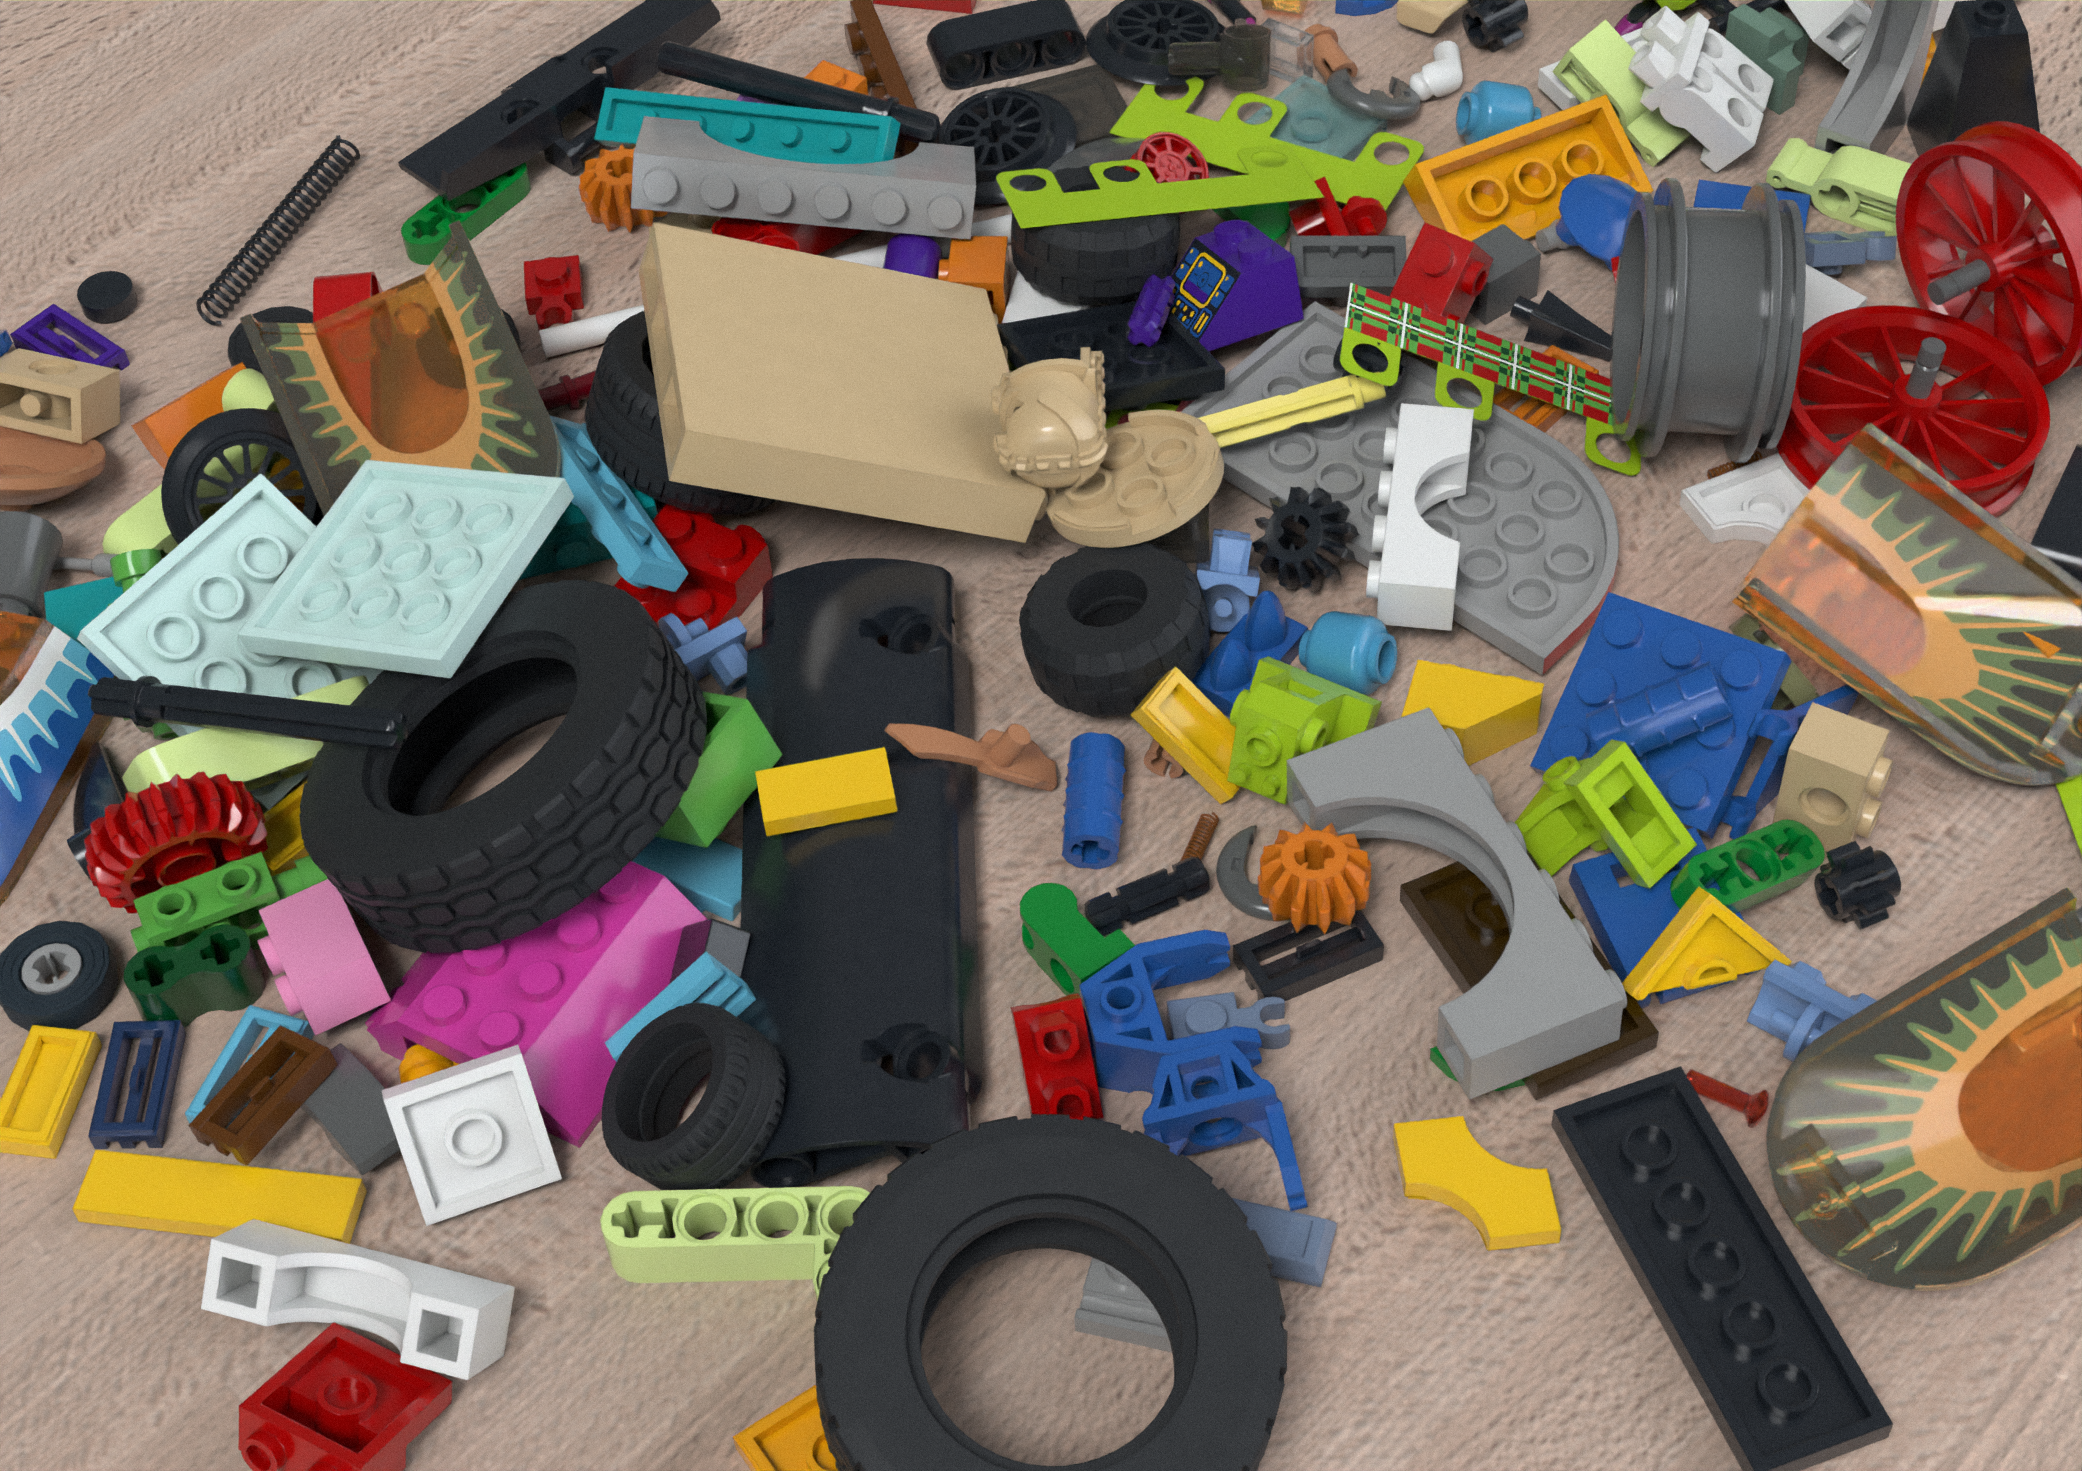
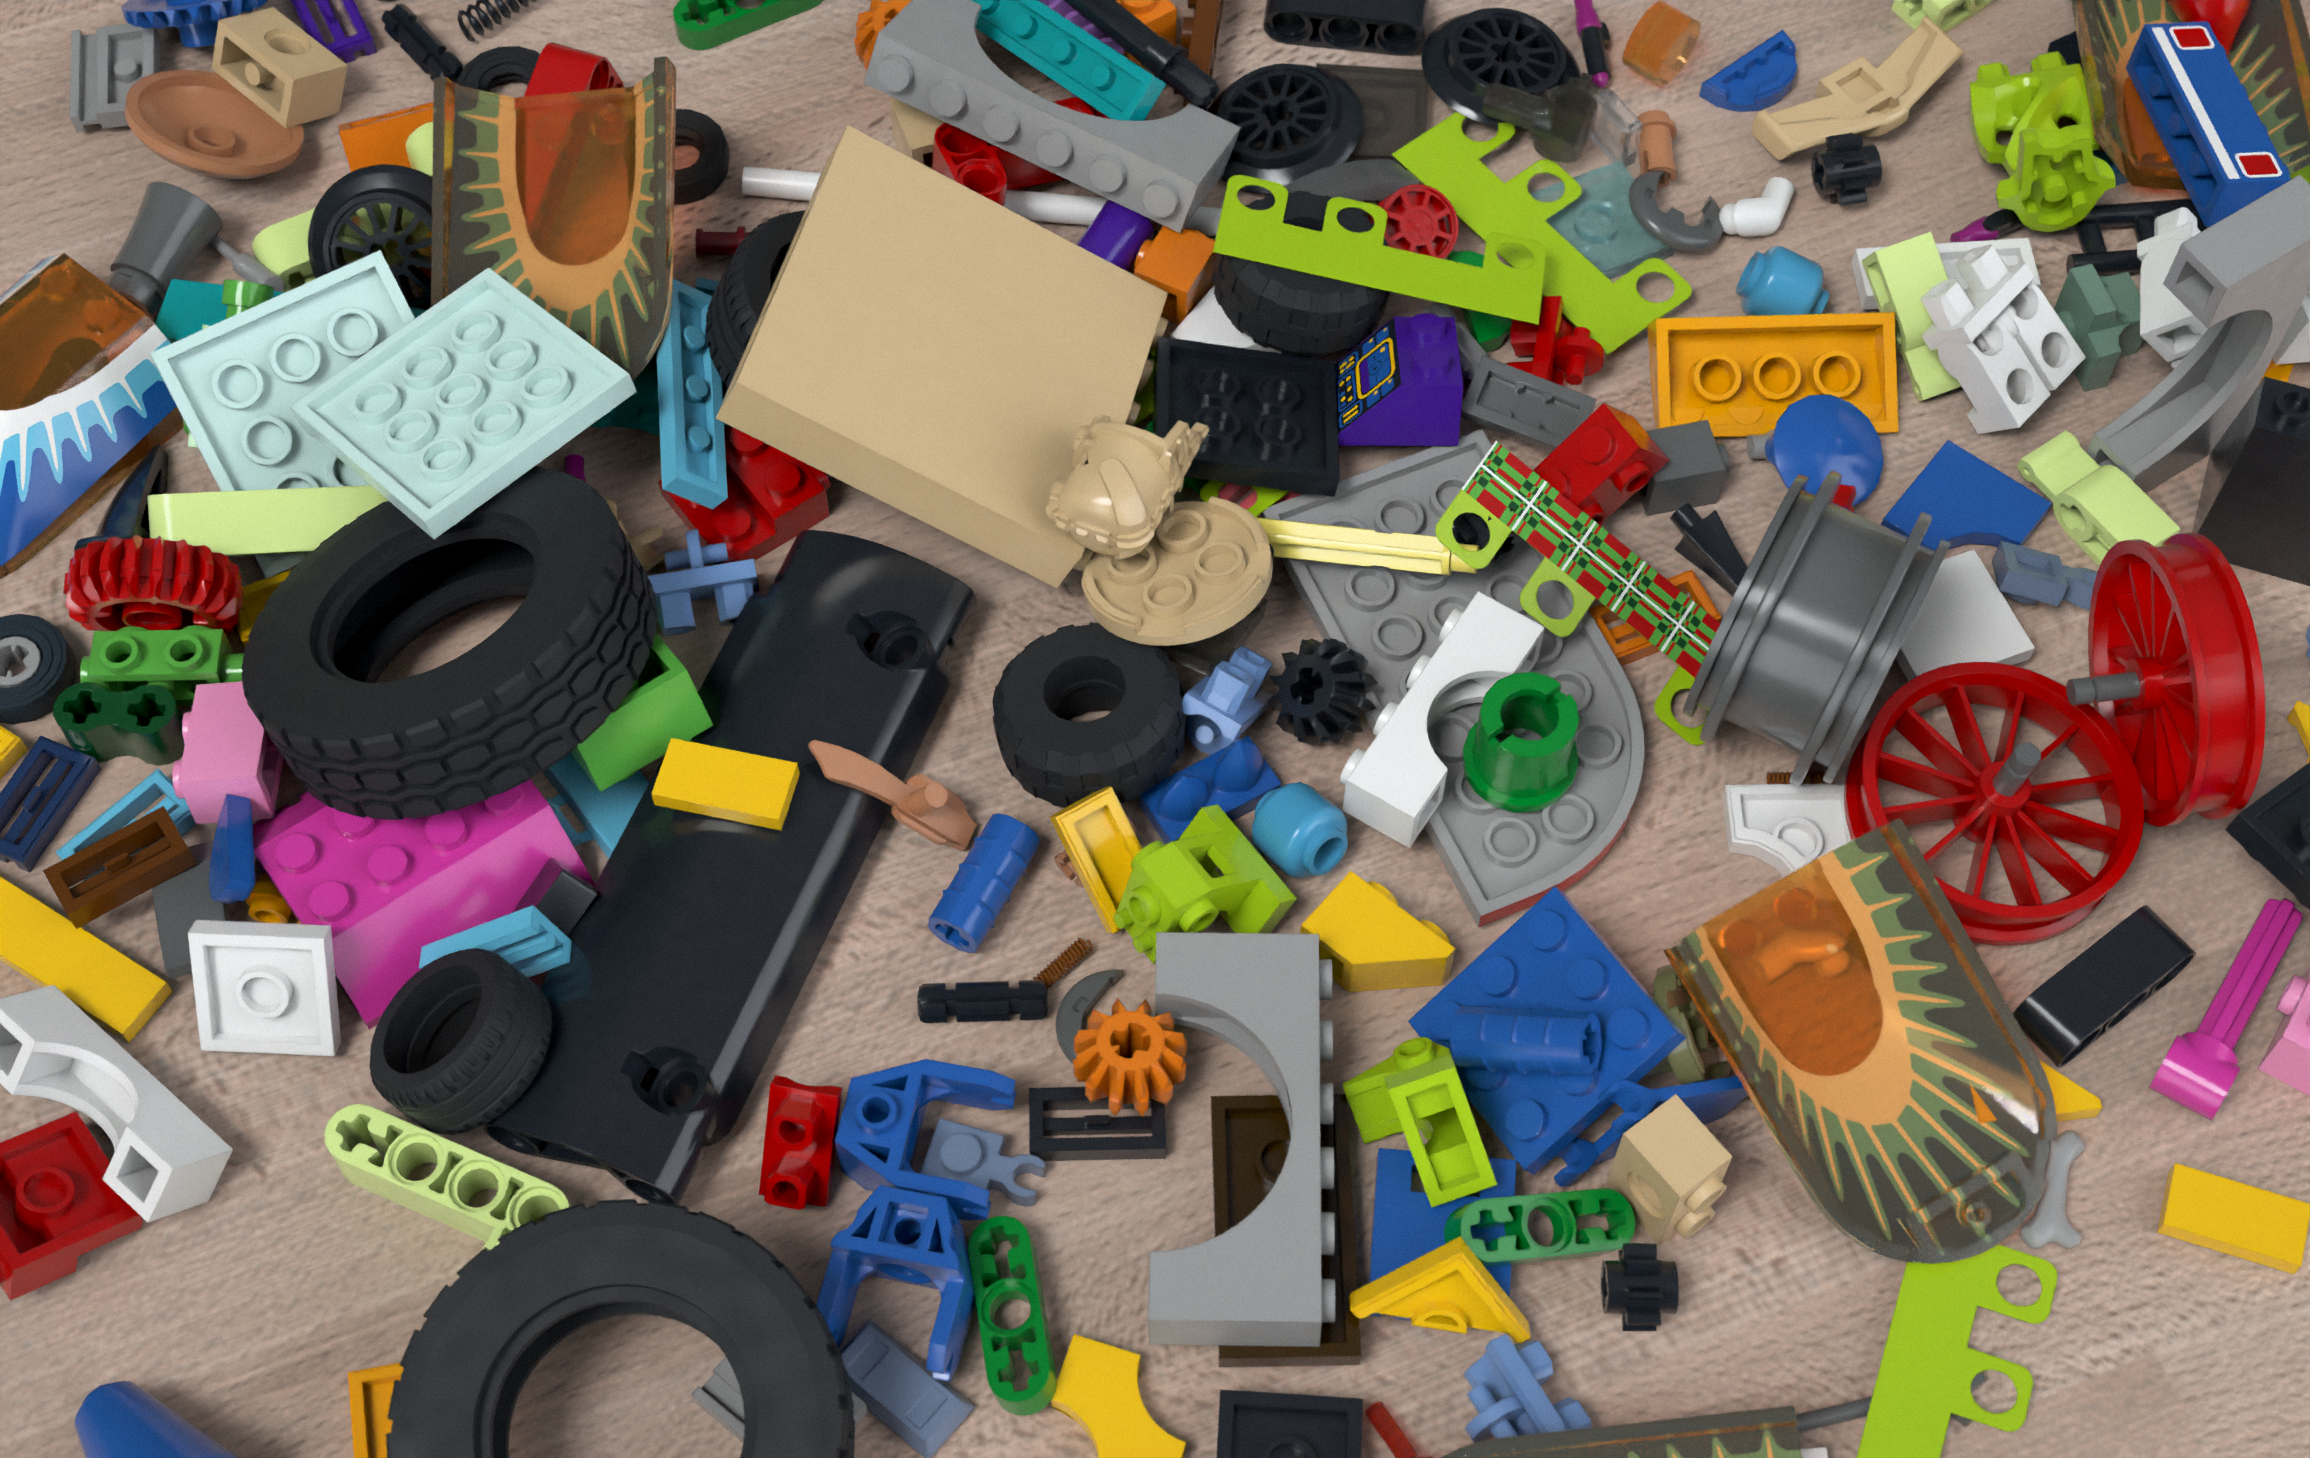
camera: 20 degrees right, 10 degrees up
(151, 702) = (186, 445): black axle -> none
(176, 341) = (421, 43): none -> black axle
(376, 1035) = (233, 852): none -> blue tile
(553, 289) = (784, 123): red plate -> none
(1063, 939) = (878, 1006): green leg -> none
(1151, 310) = (1309, 382): dark purple axle -> none
(1336, 1157) = (1032, 1335): none -> green beam
(1506, 505) = (1518, 771): none -> green piece

